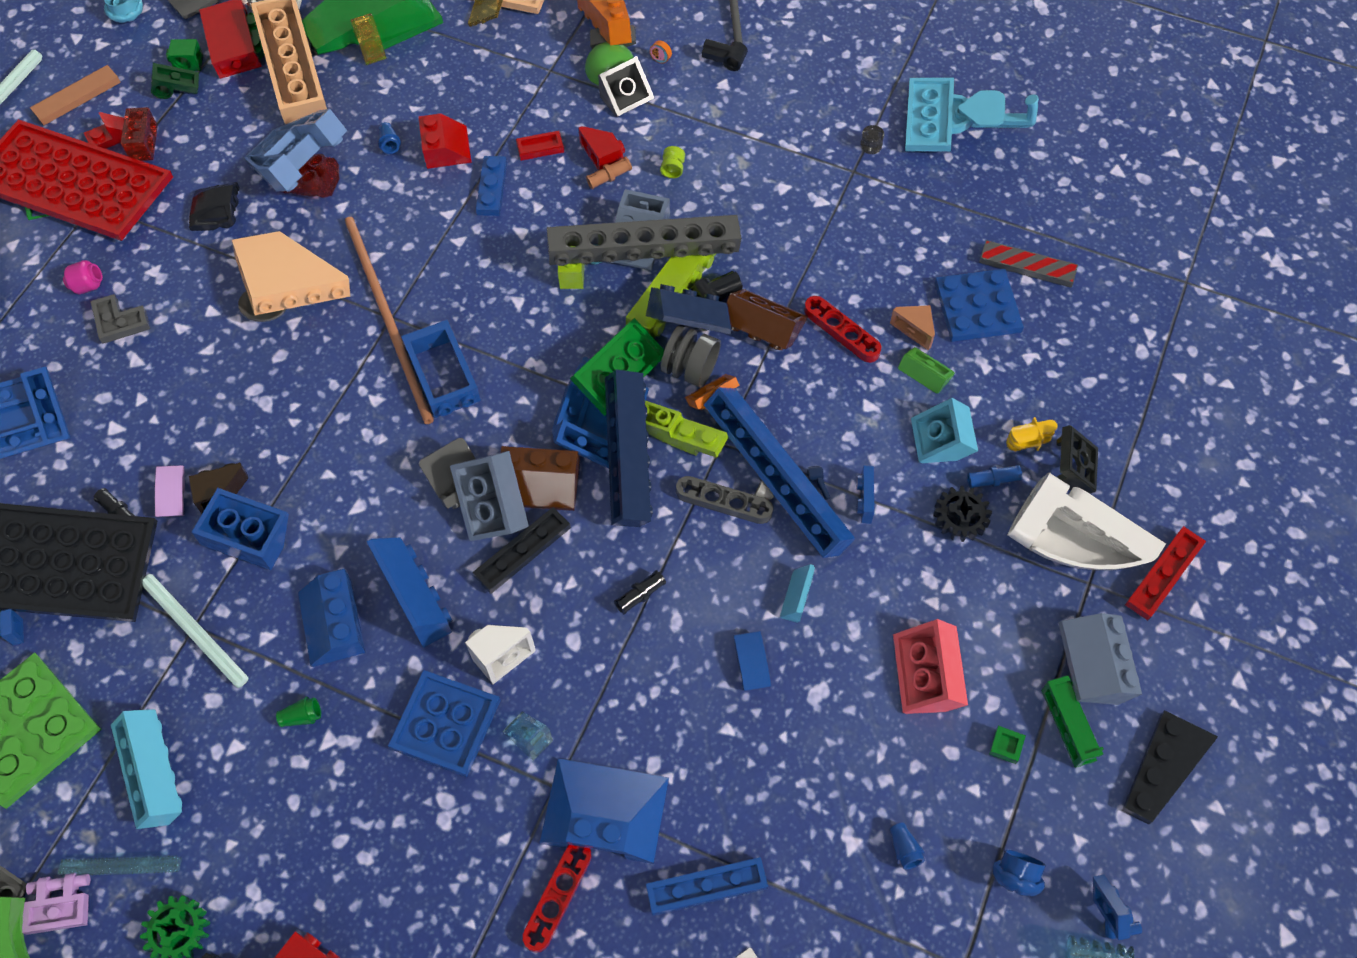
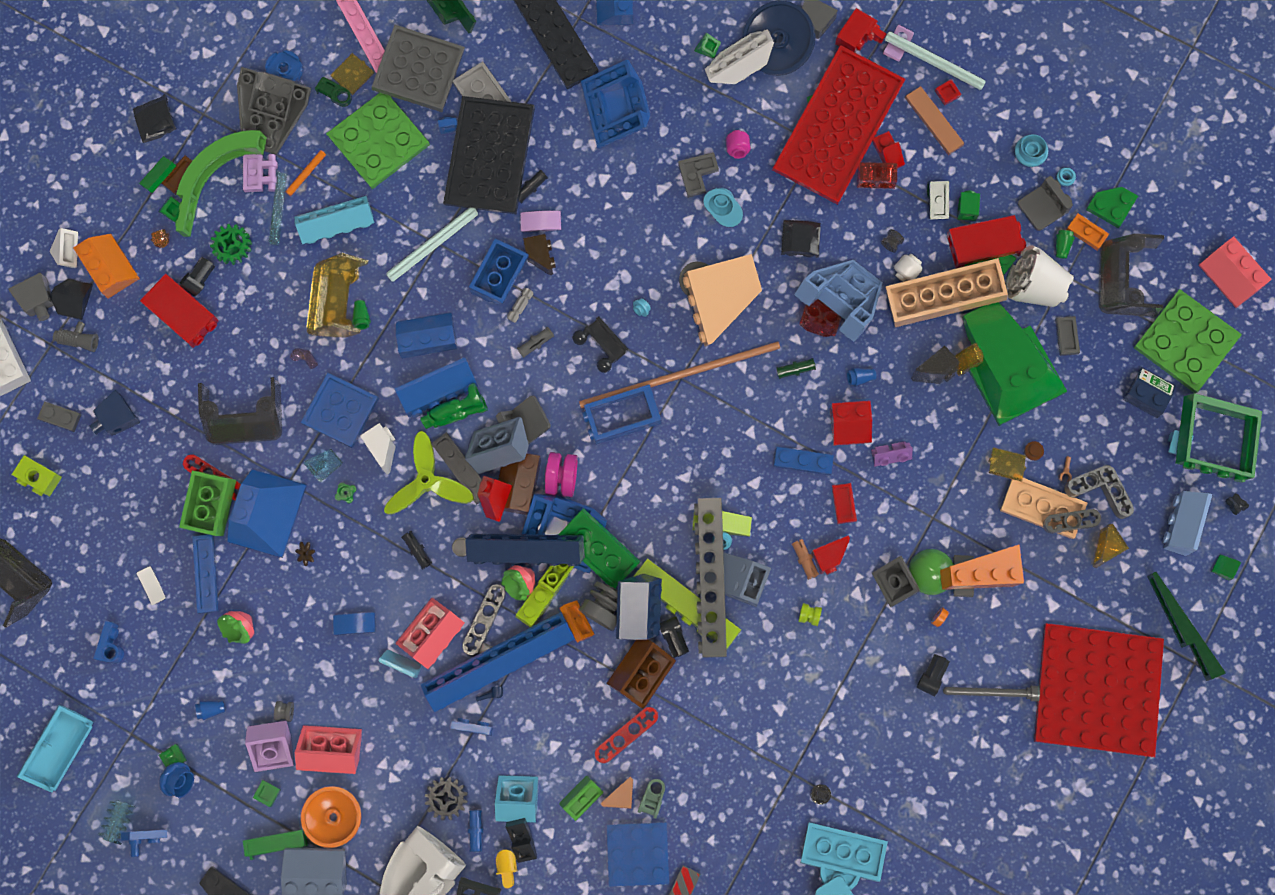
camera: 100 degrees right, 15 degrees up
(41, 82) = (948, 92): none -> red plate
(64, 831) = (305, 173): none -> orange bar
(166, 282) = (723, 207): none -> medium azure piece
(222, 119) = (892, 240): none -> clear smoke wheel
(257, 102) = (908, 268): none -> white head
(268, 765) = (330, 296): none -> clear yellow windscreen
(290, 505) = (520, 305): none -> light grey axle
(297, 362) = (641, 307): none -> medium azure plate
(340, 397) = (605, 340): none -> black gear
(343, 480) = (535, 342): none -> dark grey pin
(360, 787) = (303, 354): none -> clear purple arm
(376, 62) = (937, 368): none -> clear smoke slope
(378, 198) = (796, 368): none -> dark green pin
(440, 561) = (455, 409): none -> green piece
(477, 102) = (900, 453): none -> medium lavender hinge
(480, 893) = (242, 427): none -> clear smoke windscreen
(525, 419) = (558, 474): none -> dark pink wheel
(549, 571) = (425, 466): none -> lime piece
(562, 497) = (493, 497): none -> red slope
(563, 692) = (342, 487): none -> green plate
(600, 891) = (207, 503): none -> bright green brick
(629, 540) = (459, 547): none -> piece
(664, 739) = (305, 553): none -> dark brown plant
(672, 457) = (519, 582): none -> bright green hair
(750, 560) = (430, 633): none -> coral slope
(781, 821) = (236, 626): none -> bright green hair
(889, 736) = (284, 711): none -> dark grey wheel
(909, 290) = (652, 799): none -> sand green piece
(940, 749) = (269, 746): none -> lavender slope
(985, 893) = (172, 755): none -> green tile
(993, 422) = (522, 840): none -> black slope
(1031, 636) = (317, 817): none -> orange dish

